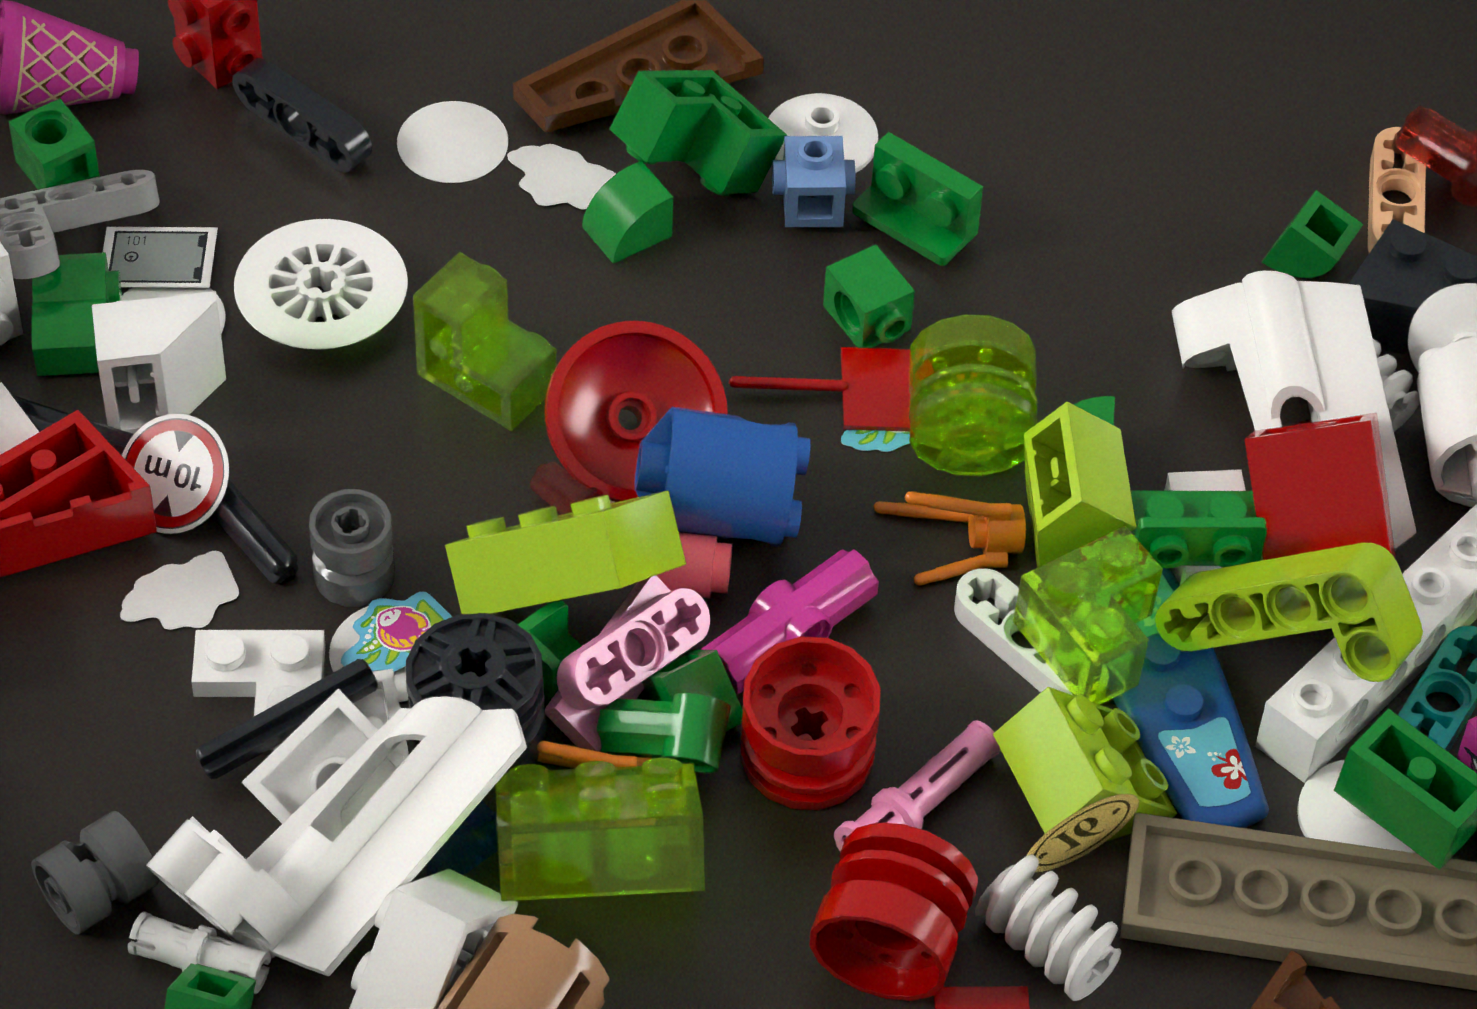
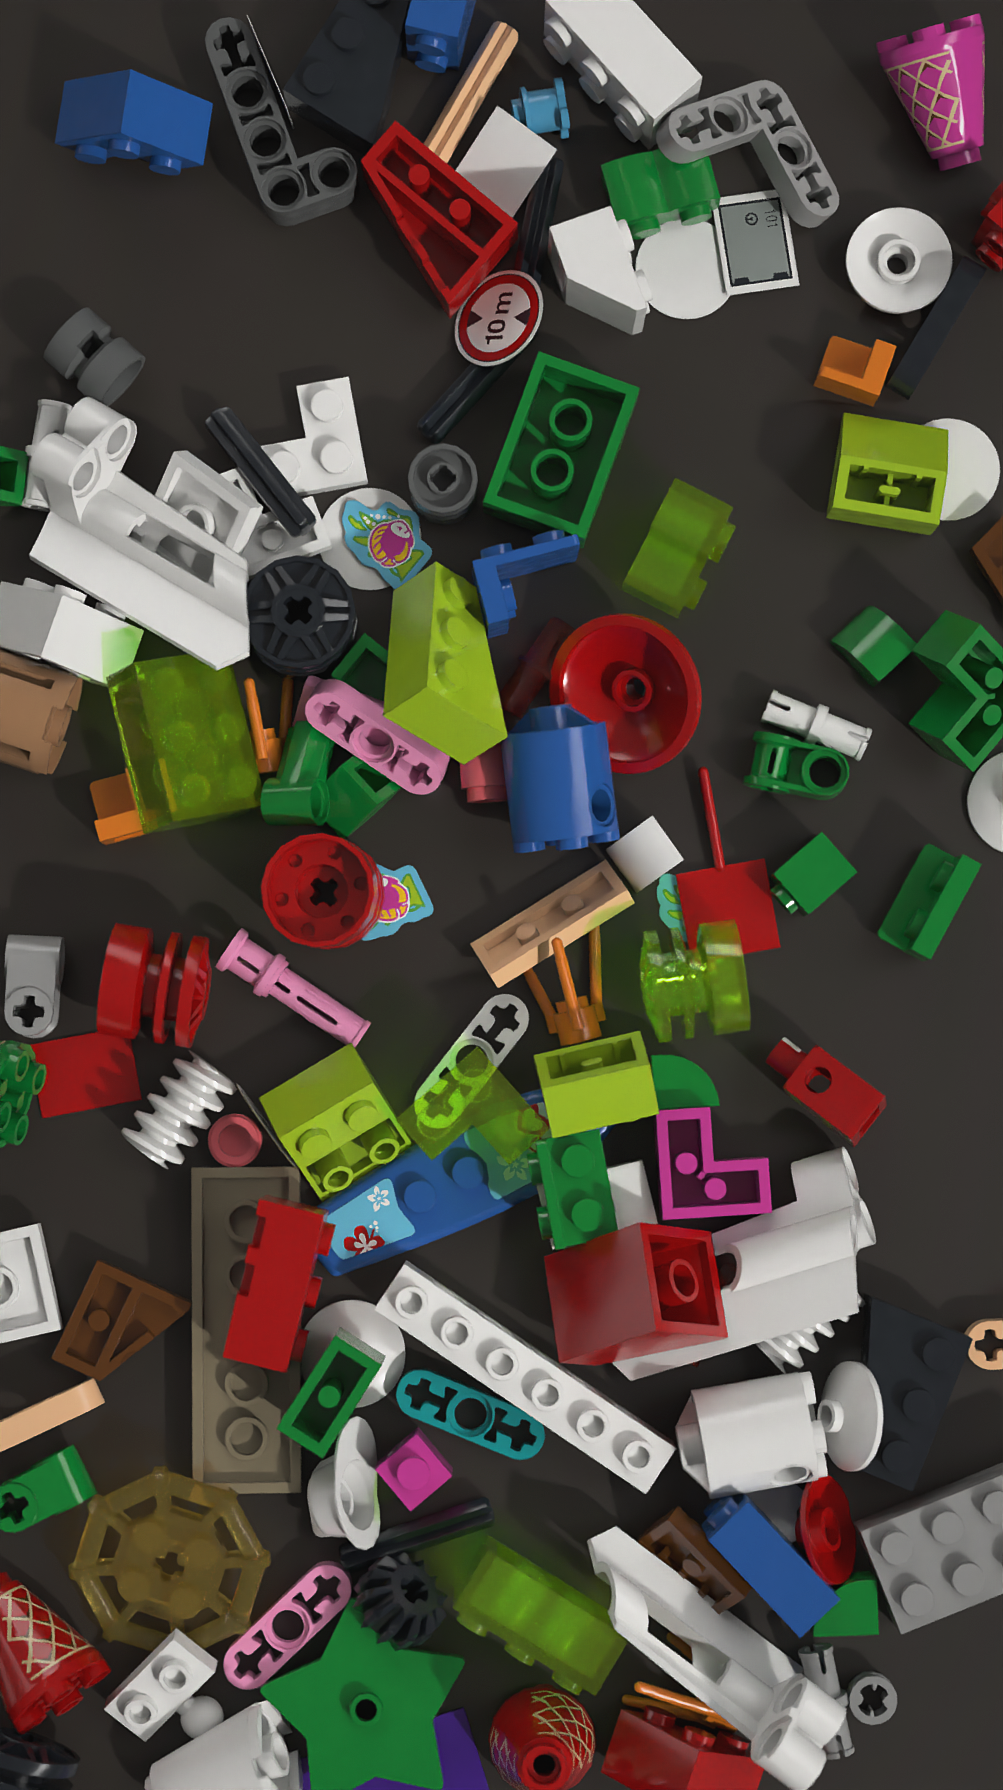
camera: 80 degrees right, 35 degrees up
(53, 146) = (834, 137): green brick -> none
(182, 593) = (397, 355): white sticker -> none
(221, 130) = (902, 235): none -> white dish
(278, 288) = (743, 335): white piece -> none
(332, 181) = (855, 369): none -> orange panel
(343, 425) = (560, 448): none -> green brick
(452, 168) = (889, 474): none -> lime slope
(481, 490) = (500, 563): none -> blue bracket
(558, 175) = (924, 575): white sticker -> none
(659, 937) = (115, 809): none -> orange panel
(704, 277) = (816, 725): none -> white pin
(749, 291) = (792, 767): none -> green piece
(796, 610) = (445, 859): dark pink piece -> none
(815, 169) = (919, 805): medium blue brick -> none
(829, 423) = (644, 854): none -> white brick
(883, 532) = (562, 914): none -> light nougat plate
(1097, 883) = (235, 1140): none -> coral tile
(1113, 304) = (845, 1107): none -> red torso
(1186, 430) = (696, 1183): none -> dark pink brick
(1272, 823) = (278, 1284): none -> red wedge
(1313, 239) = (961, 1267): green brick -> none
(1339, 588) = (485, 1281): lime beam -> none

